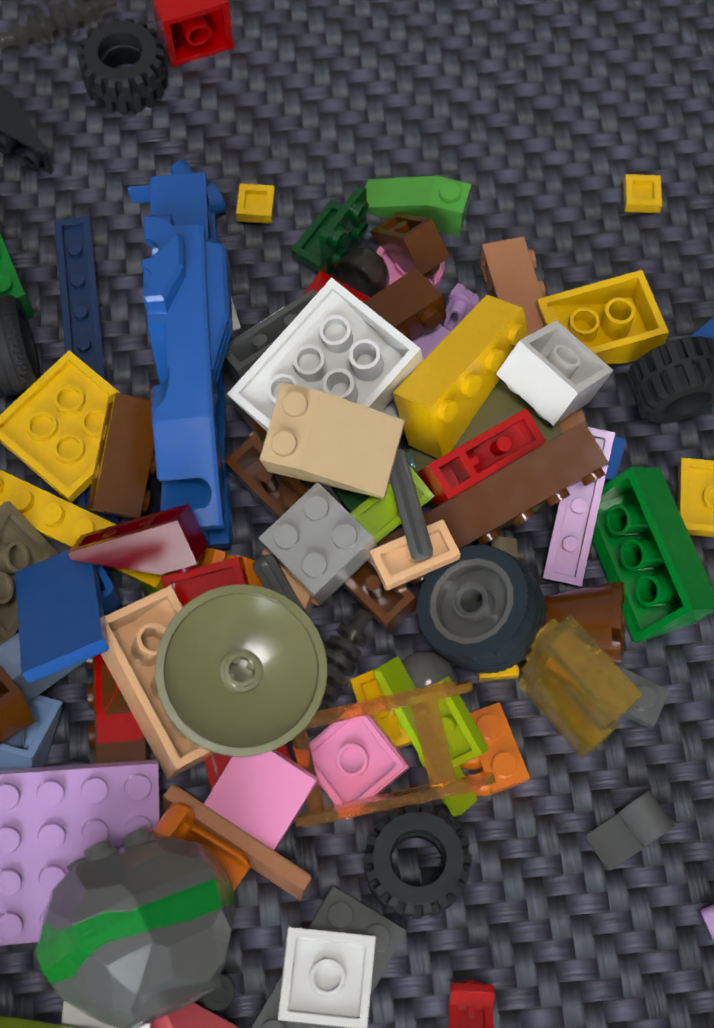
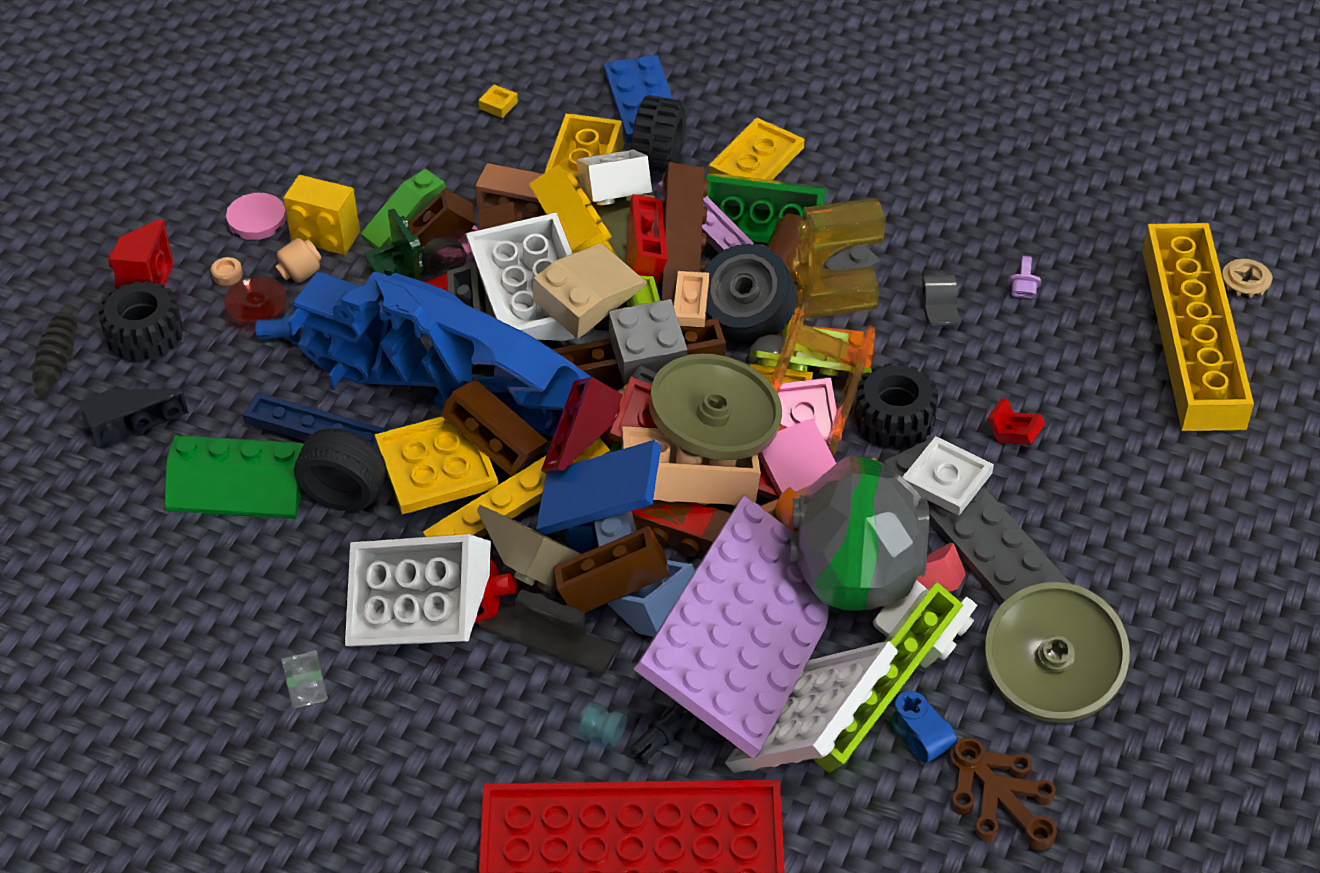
camera: 60 degrees left, 20 degrees down
(209, 132) = (255, 299): none -> clear red dish
(245, 96) = (226, 271): none -> light nougat tile
(286, 147) = (298, 260): none -> light nougat head
(333, 76) = (256, 216): none -> bright pink tile
(347, 130) = (322, 214): none -> yellow brick
(410, 509) = (670, 281): dark grey axle -> none

